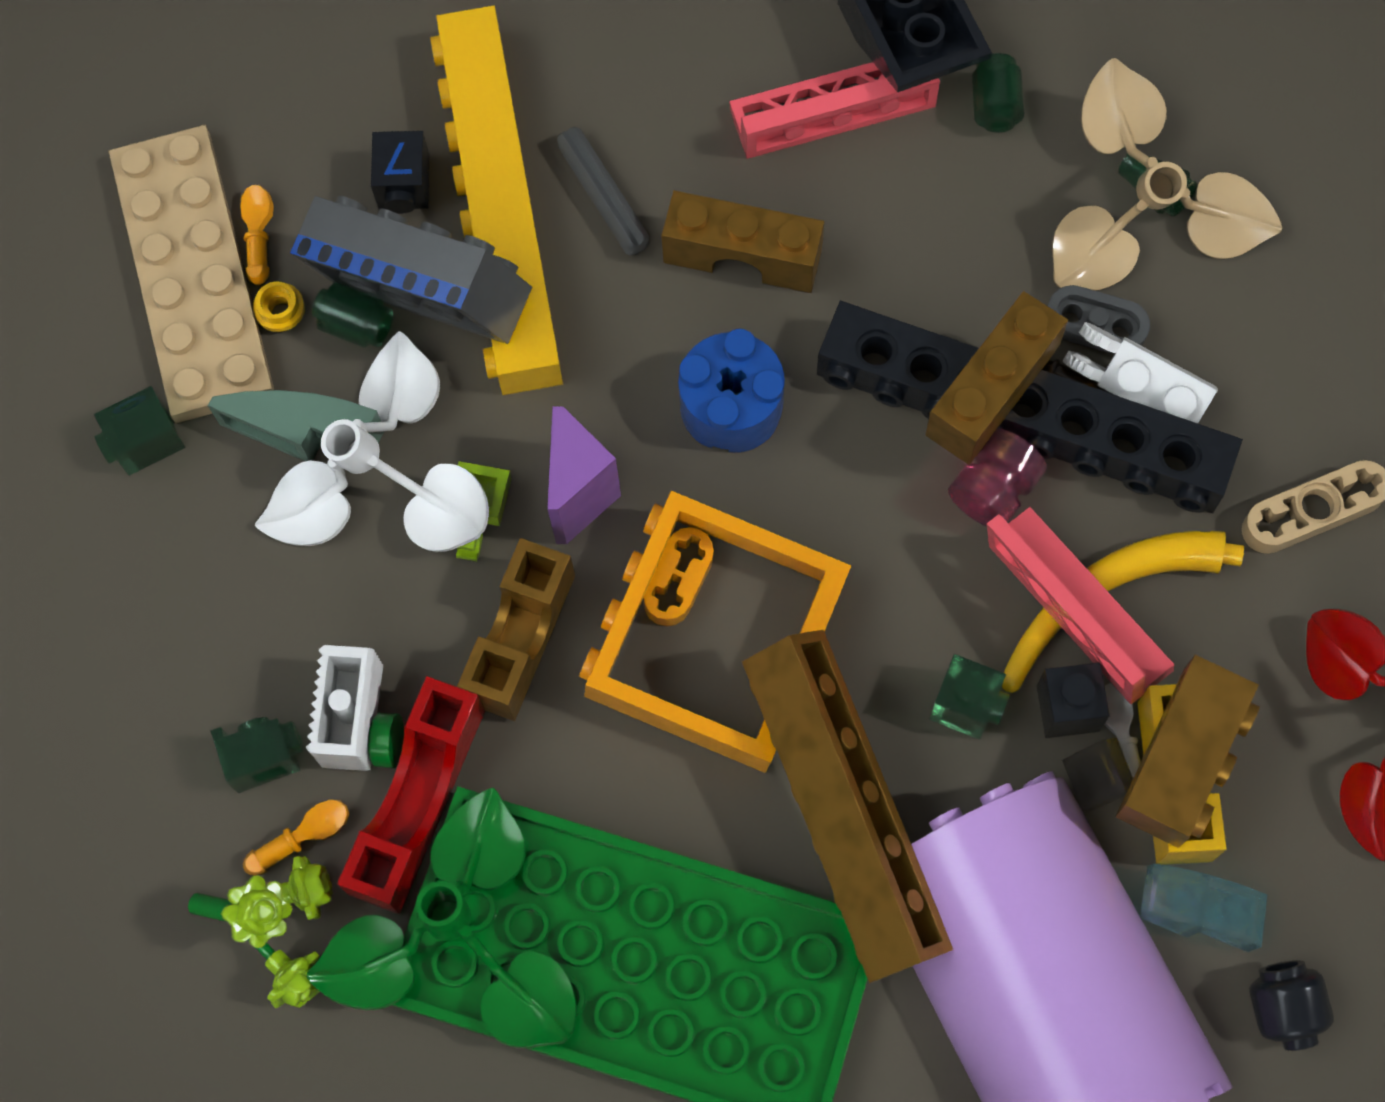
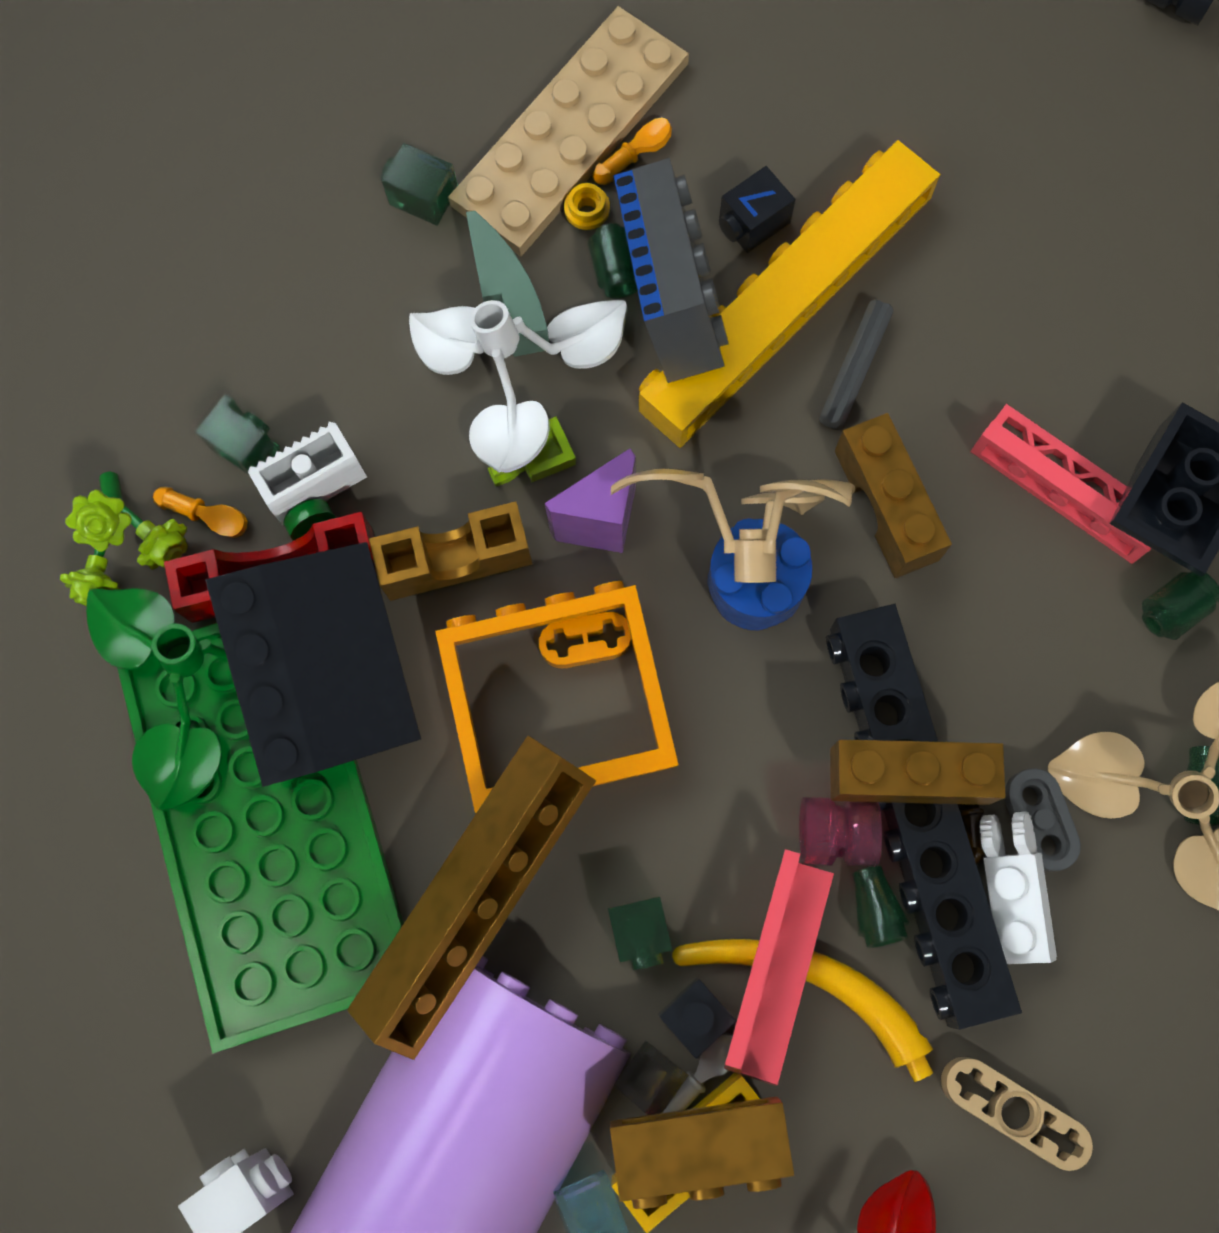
camera: 55 degrees right, 5 degrees up
(536, 808) = (313, 661): none -> black slope
(718, 366) = (755, 548): none -> tan plant
(1081, 496) = (877, 909): none -> clear green cone

